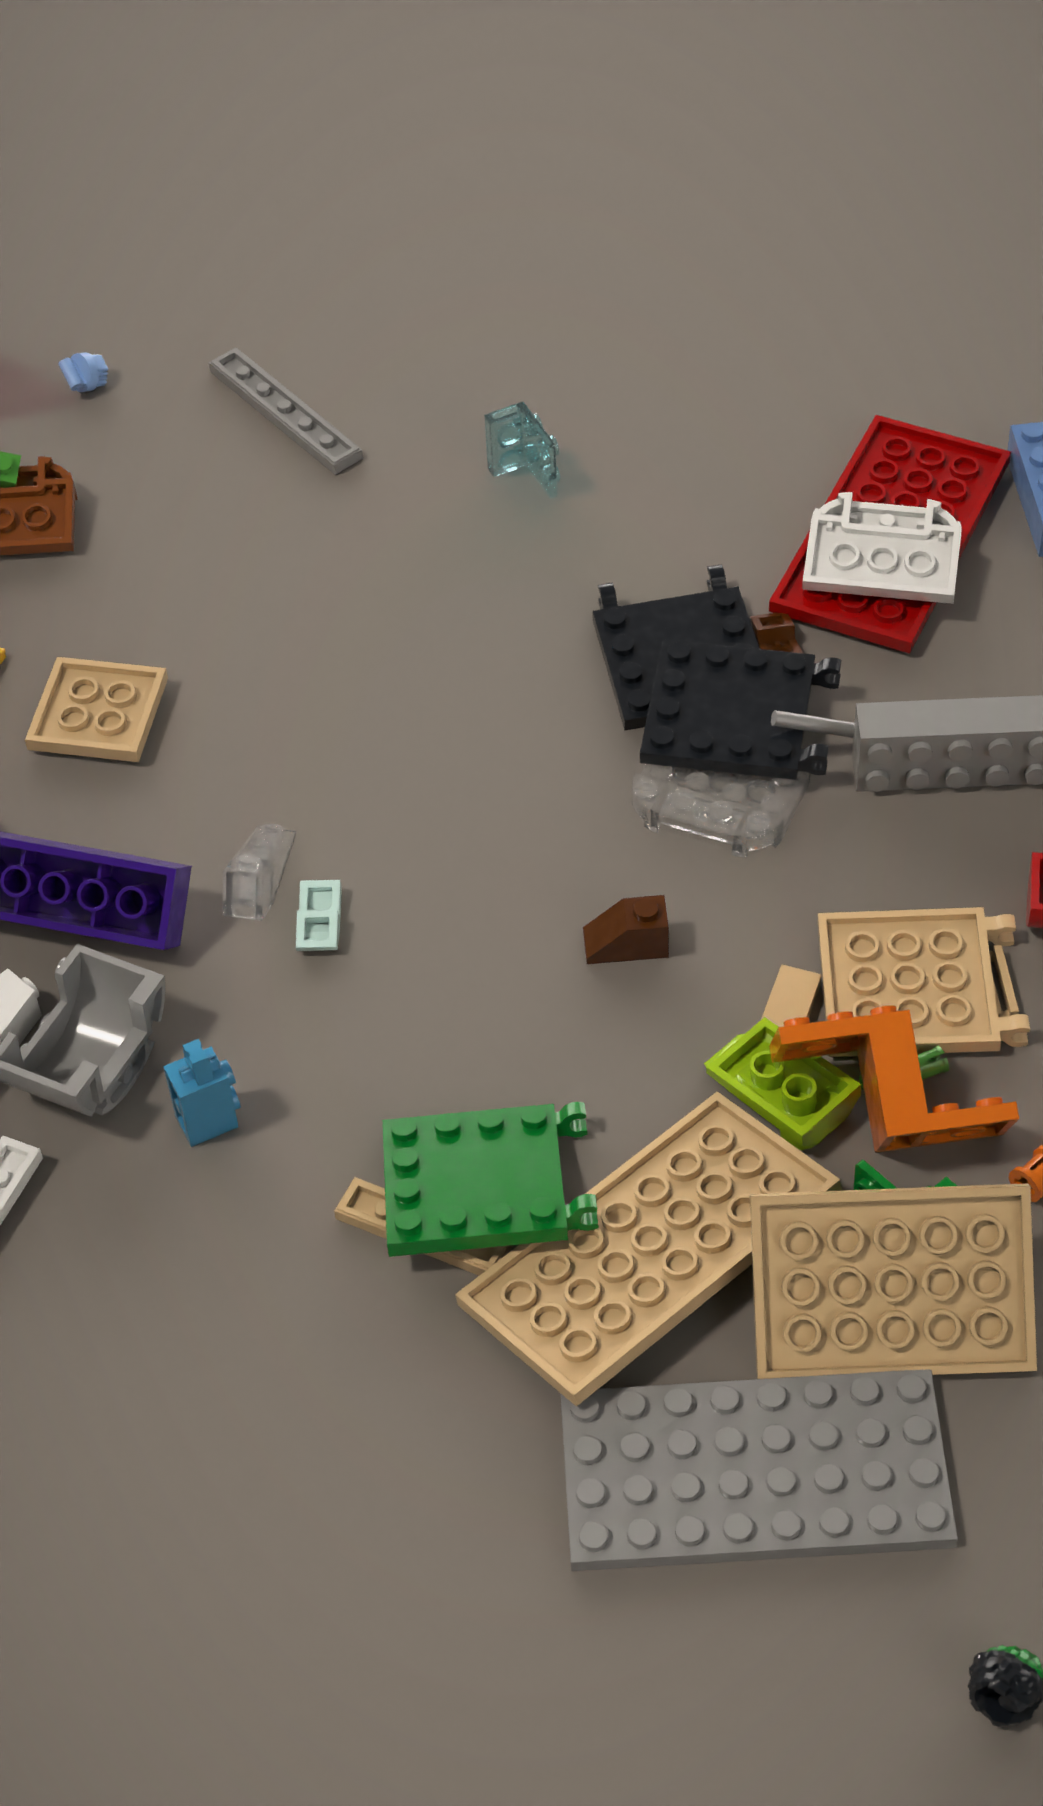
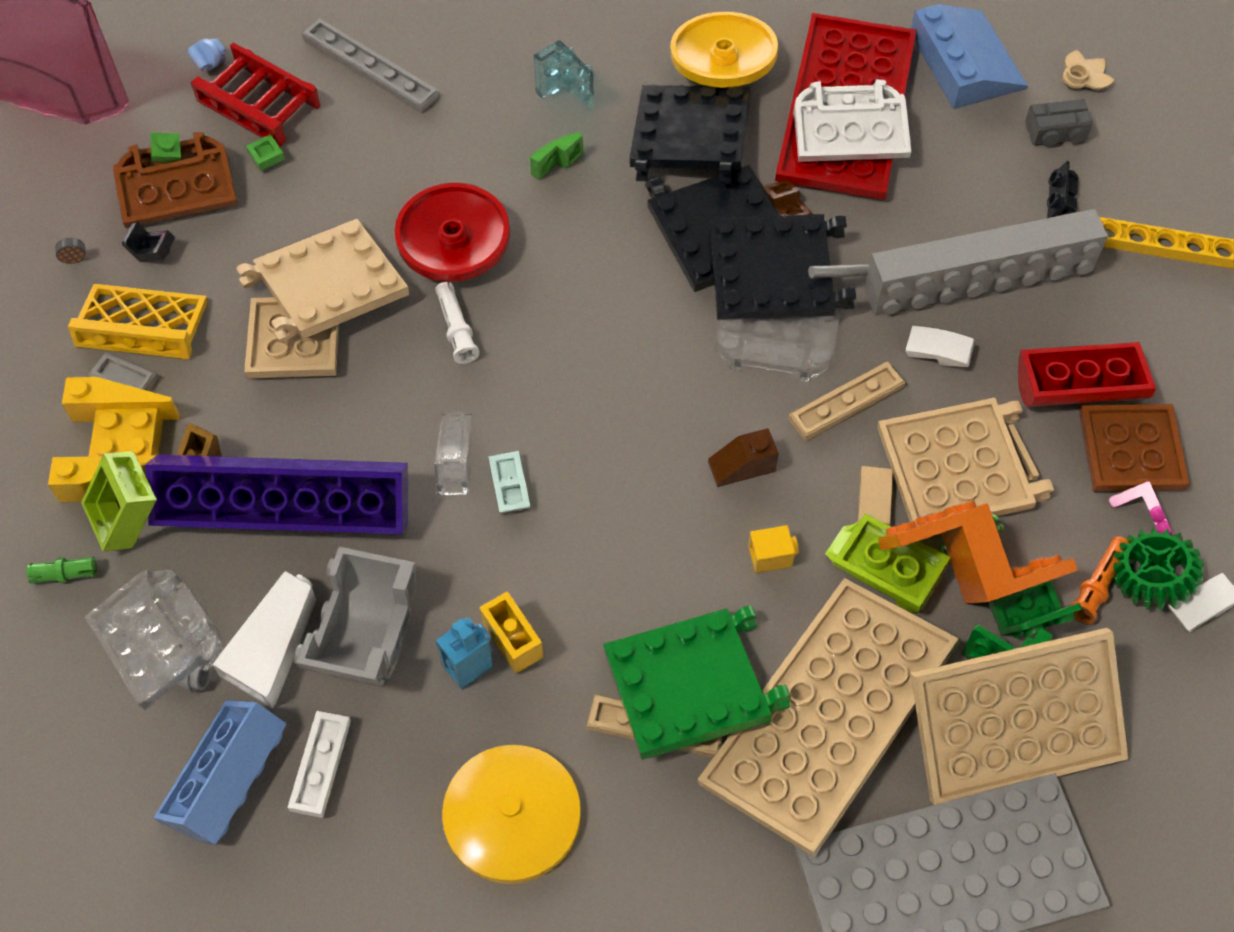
camera: 15 degrees left, 10 degrees up
(120, 450) = (252, 116): none -> red fence
(123, 494) = (265, 152): none -> bright green plate
(154, 648) = (325, 280): none -> tan plate
(211, 1297) = (511, 814): none -> yellow dish
(268, 1084) = (511, 632): none -> yellow brick
(305, 732) = (458, 331): none -> white pin
(328, 613) = (452, 232): none -> red dish
(495, 539) = (560, 151): none -> bright green slope
(633, 1043) = (772, 549): none -> yellow brick
(672, 533) = (690, 129): none -> black plate
(743, 443) = (724, 49): none -> yellow dish
(786, 886) = (846, 401): none -> tan tile
(933, 836) = (939, 344): none -> white slope
(962, 1158) = (1030, 610): none -> green bracket

